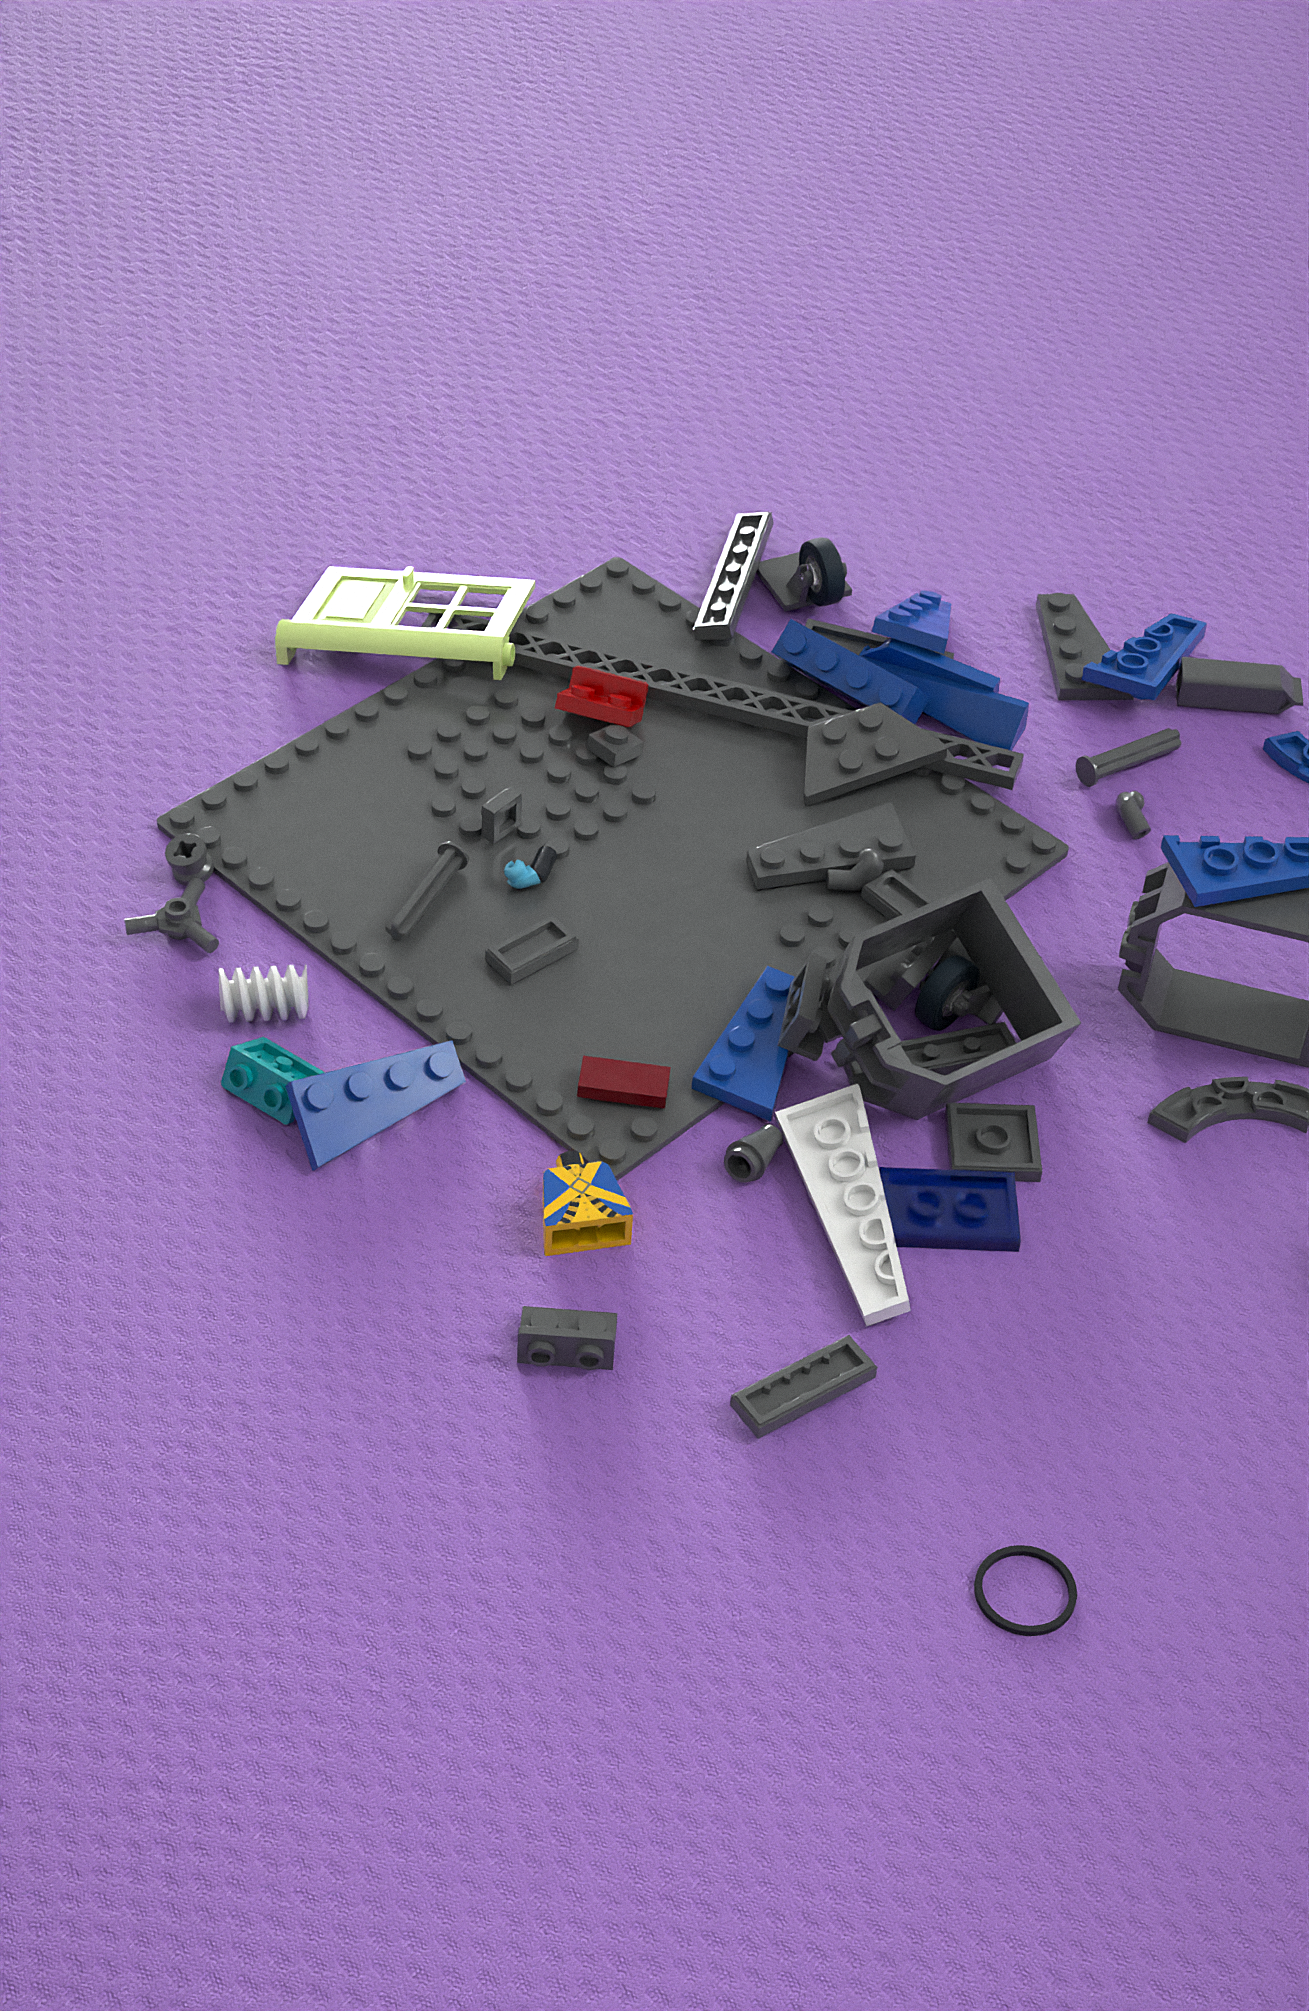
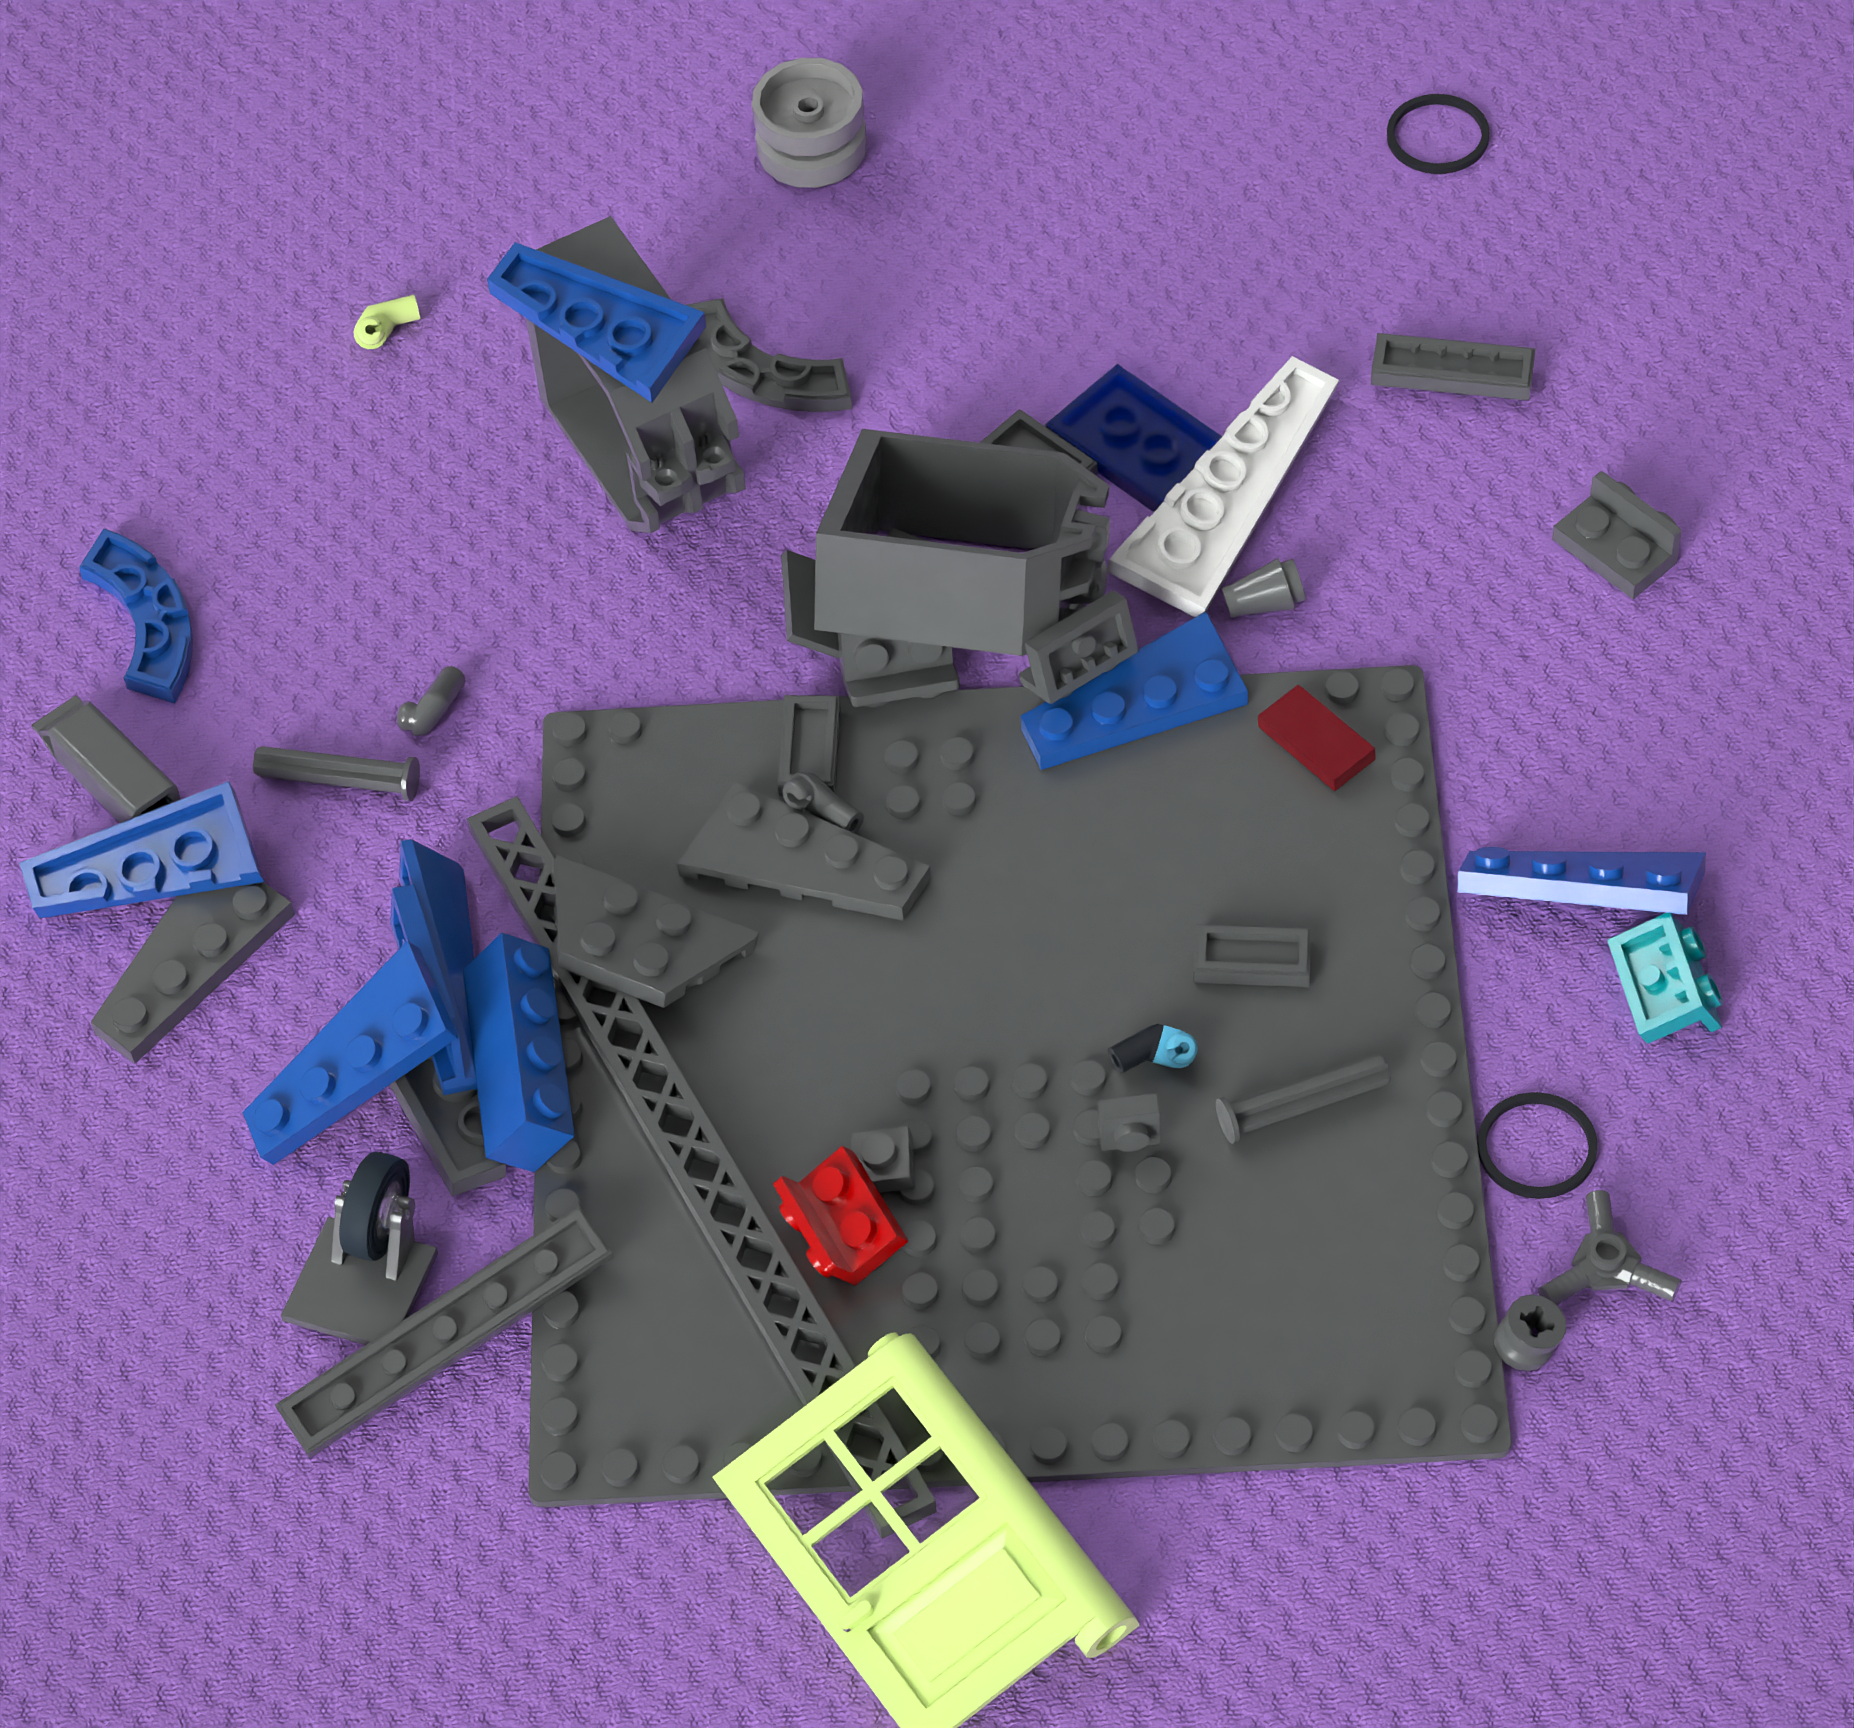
camera: 130 degrees left, 10 degrees up
(263, 993) = (1597, 1078): white piece -> none
(280, 938) = (1531, 1191): none -> black piece
(583, 1207) = (1491, 638): yellow torso -> none

